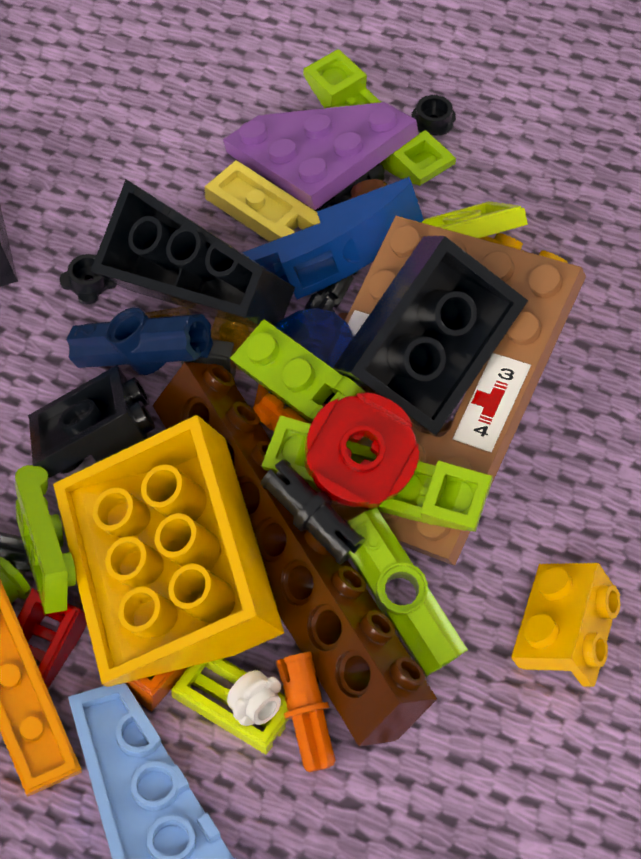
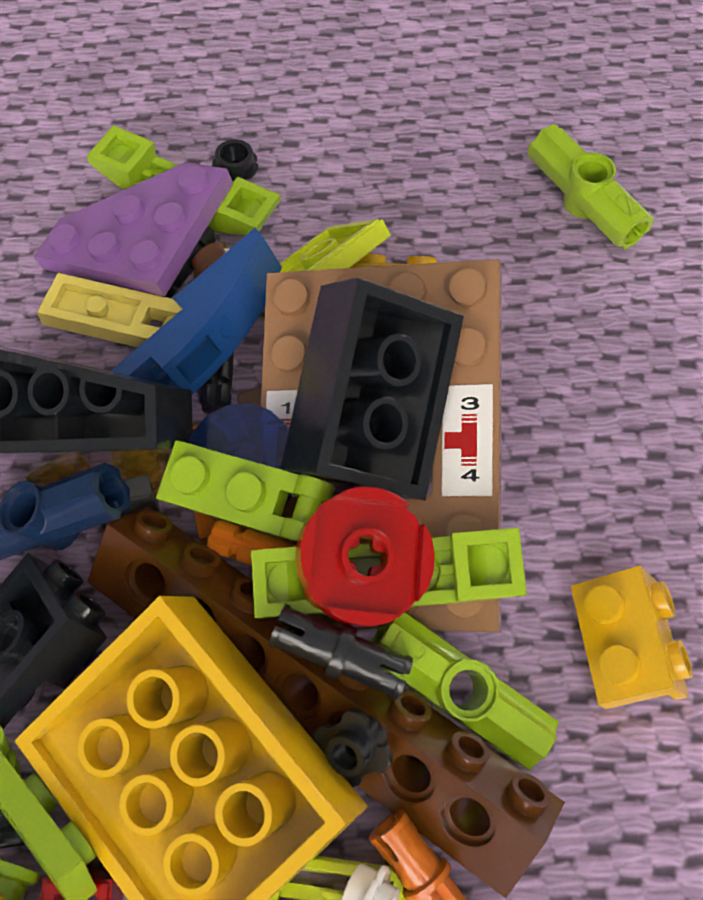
camera: 25 degrees left, 5 degrees up
(294, 585) = (355, 746): none -> black plate

